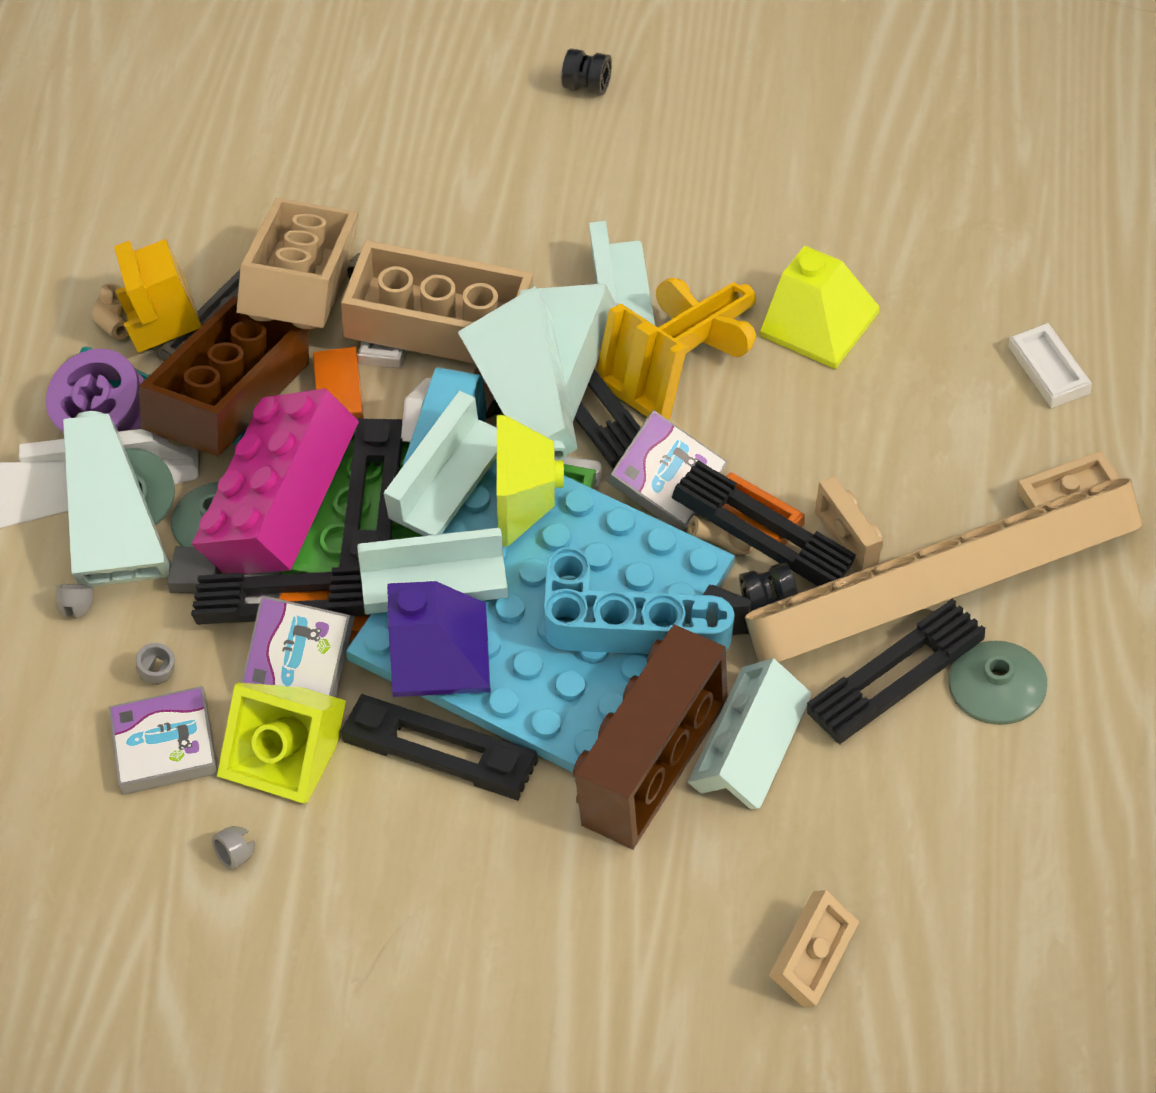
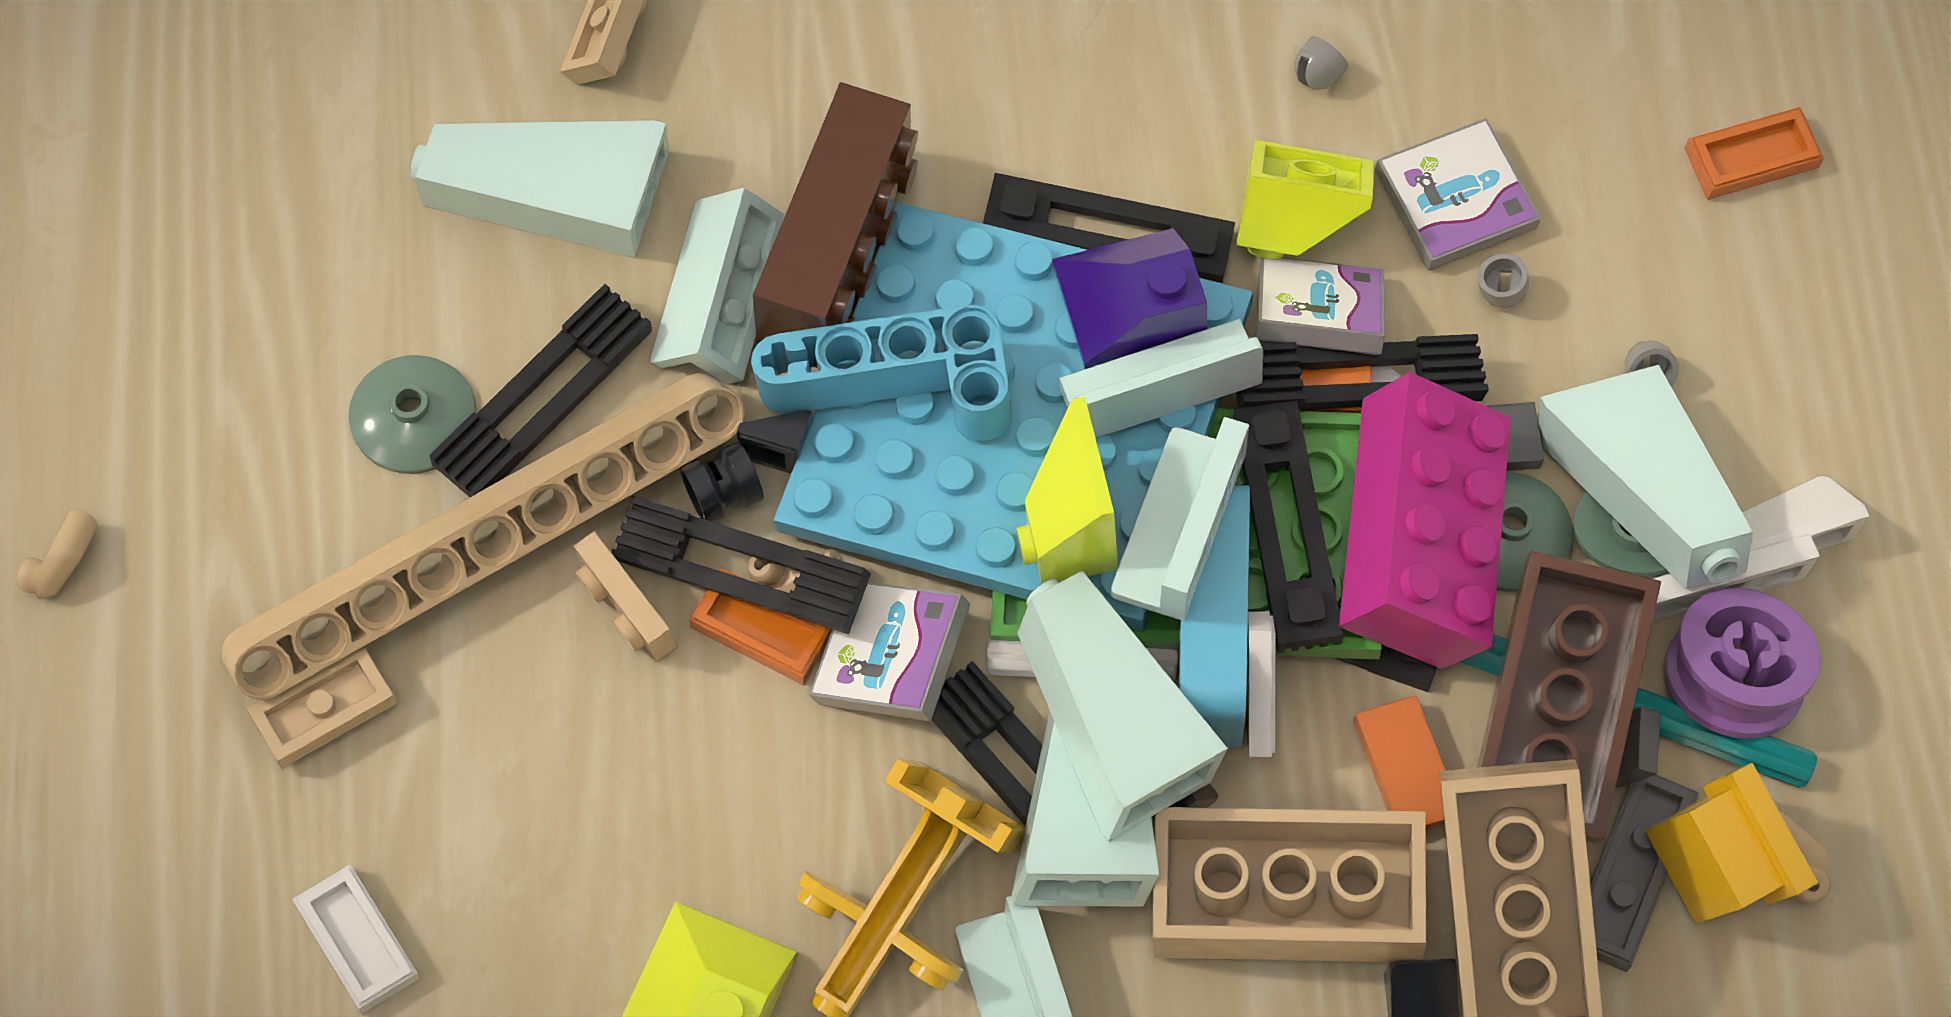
camera: 160 degrees right, 15 degrees up
(877, 825) = (548, 178): none -> light aqua slope

